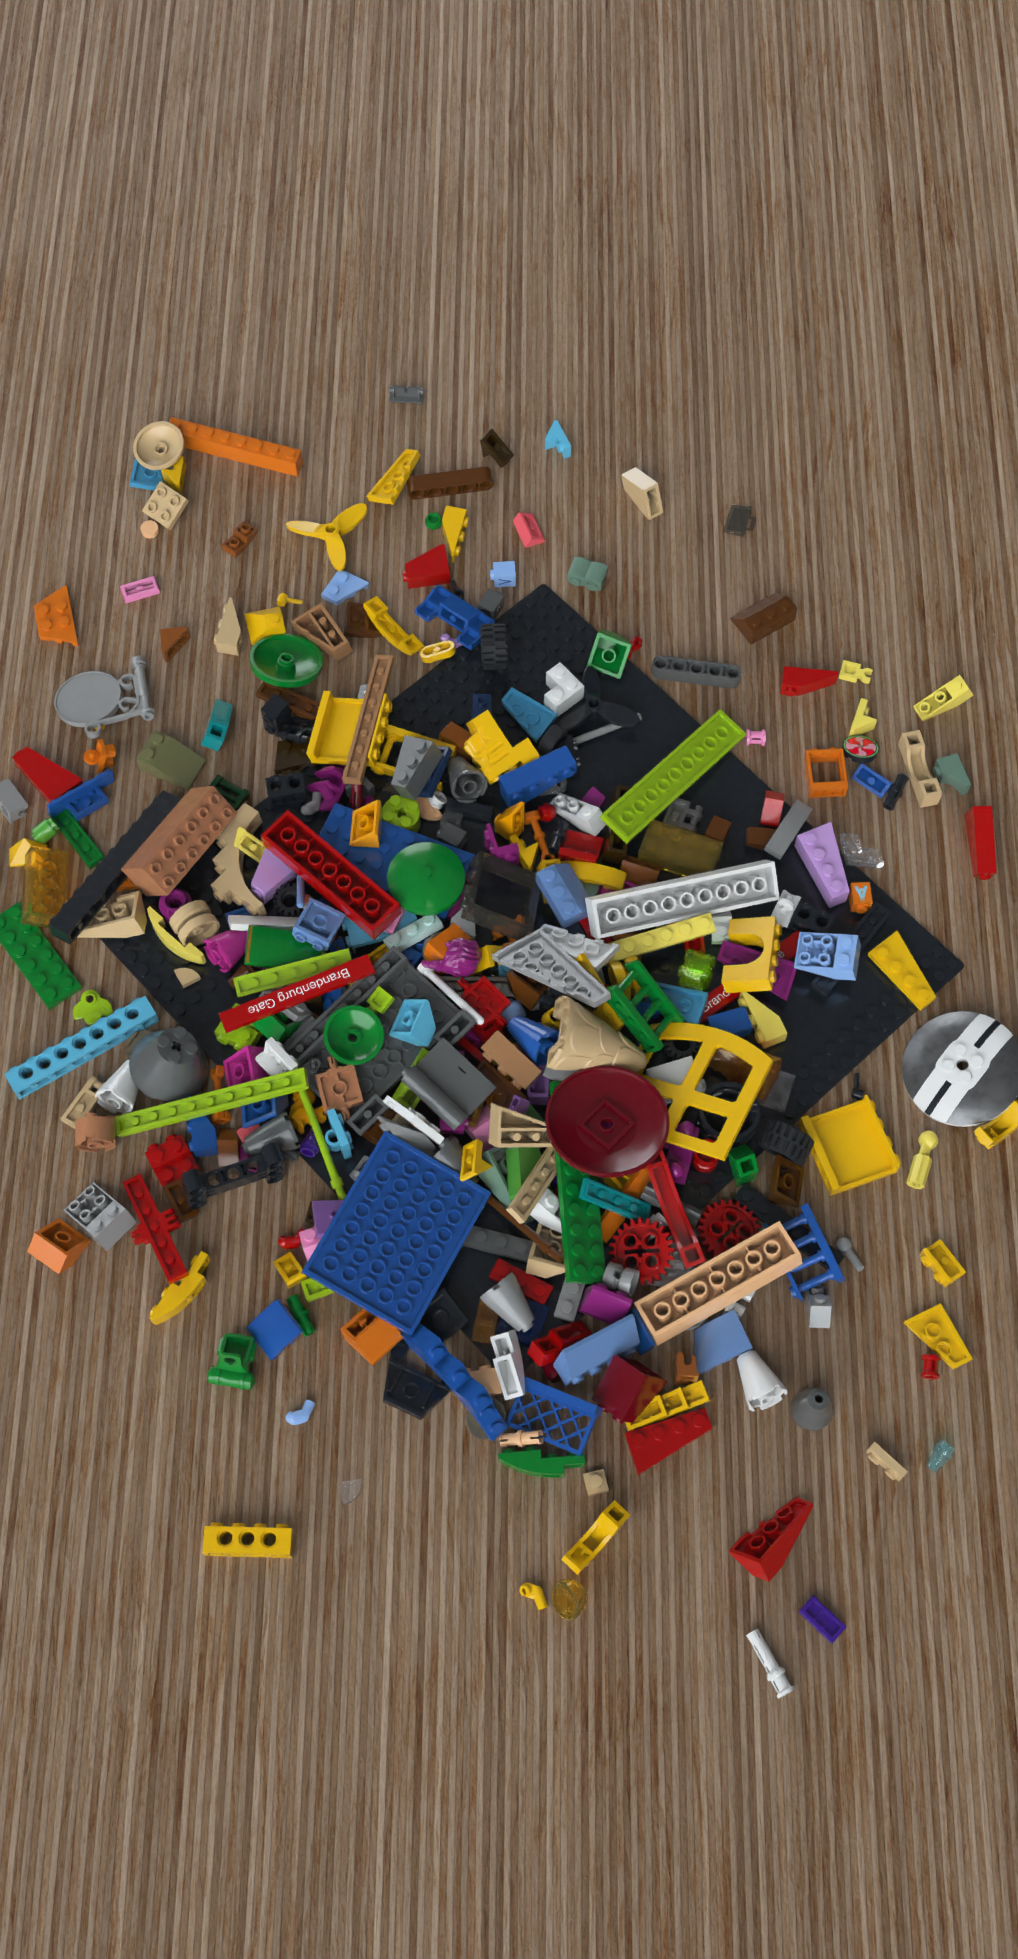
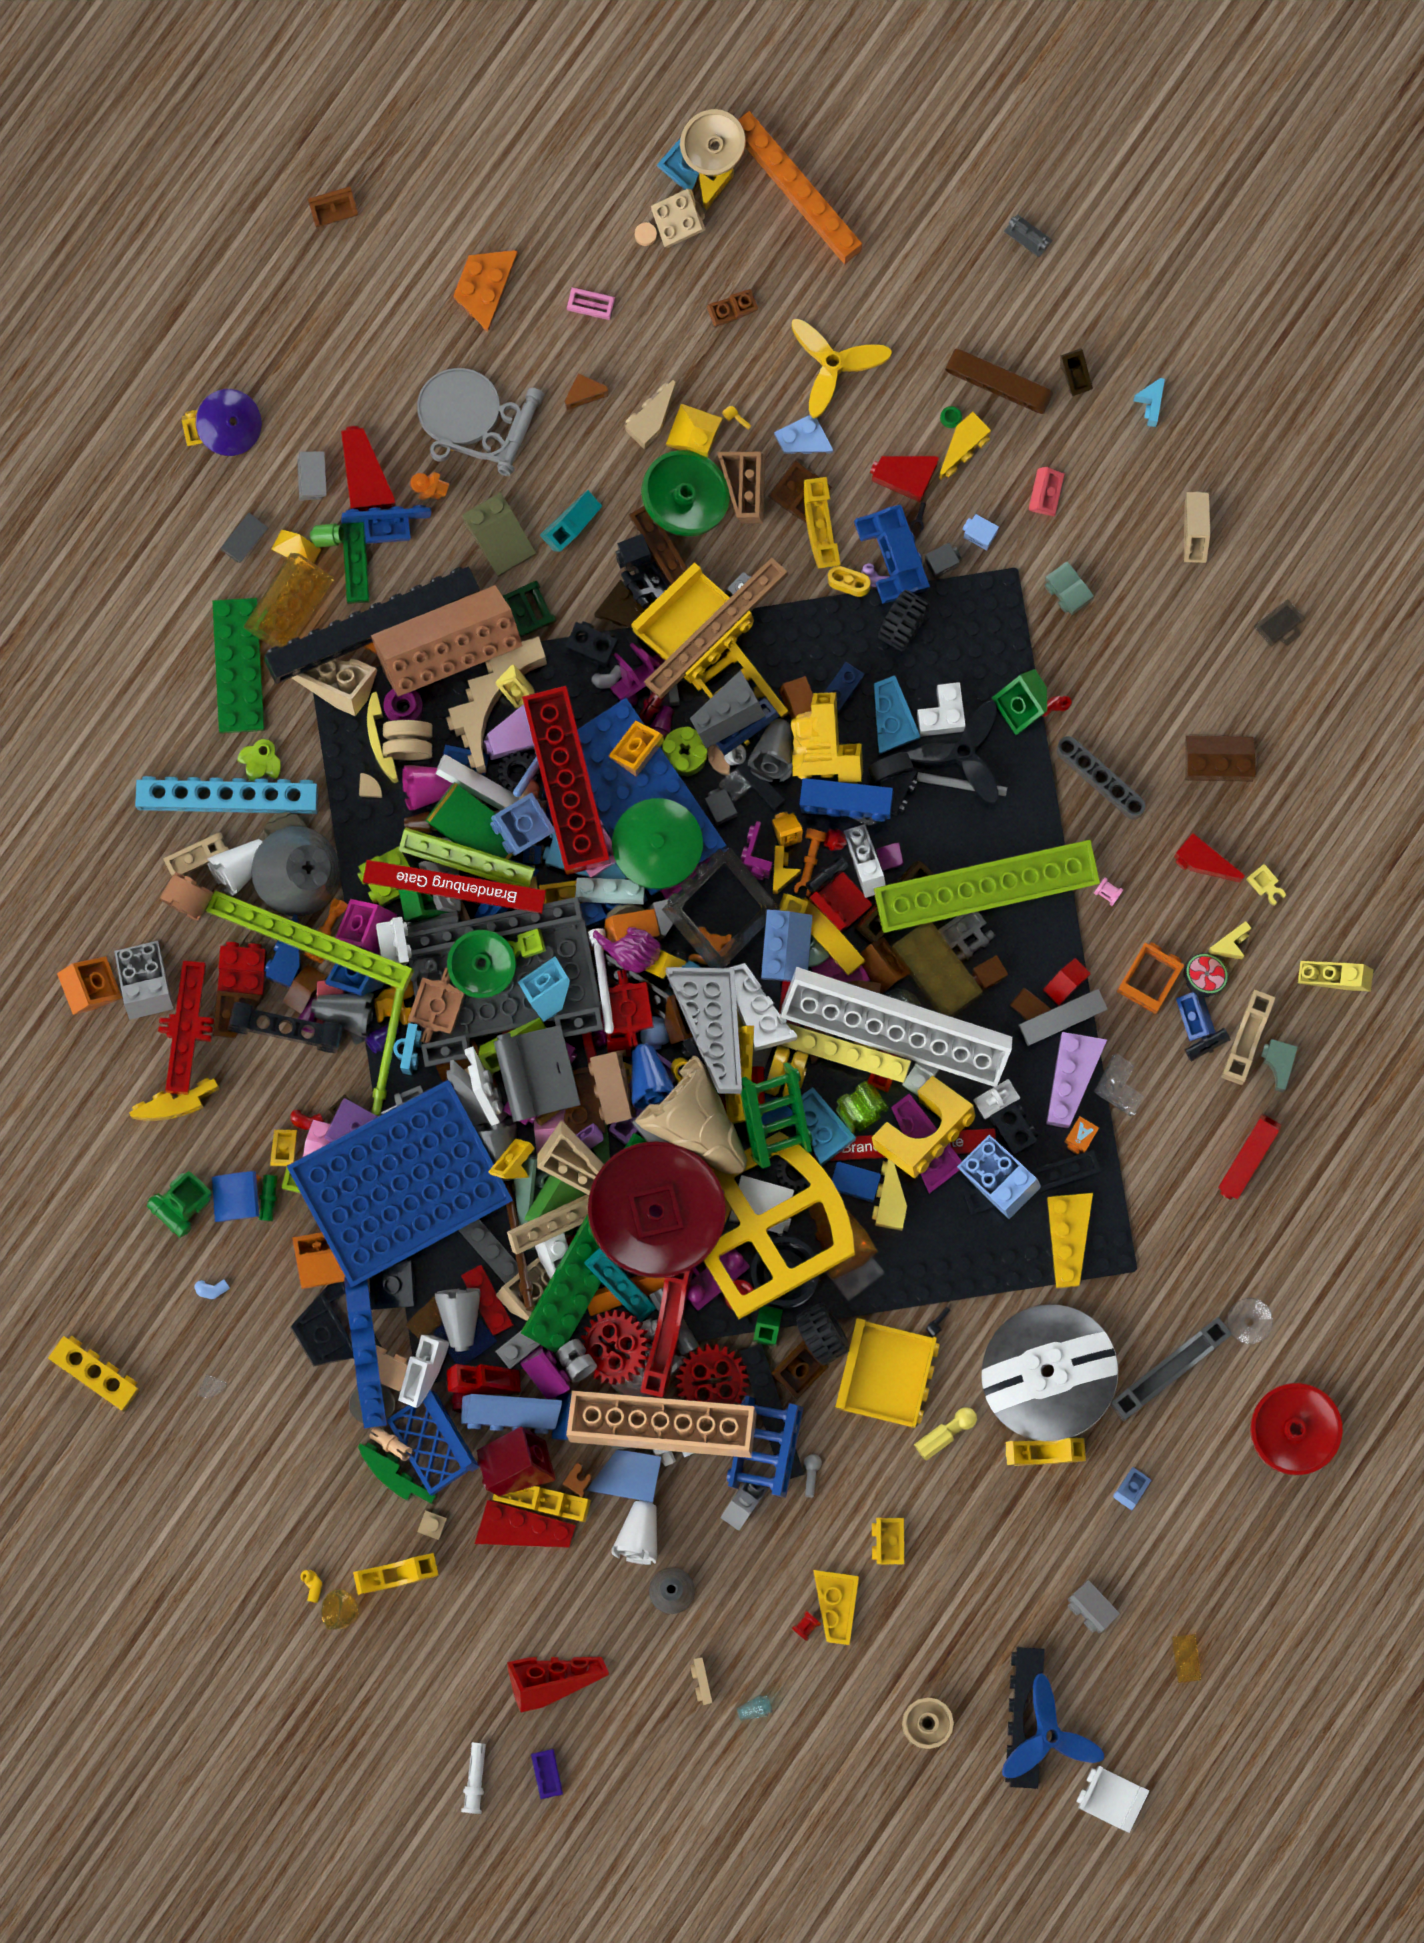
camera: 35 degrees right, 15 degrees up
(394, 479) = (936, 342): yellow wing -> none

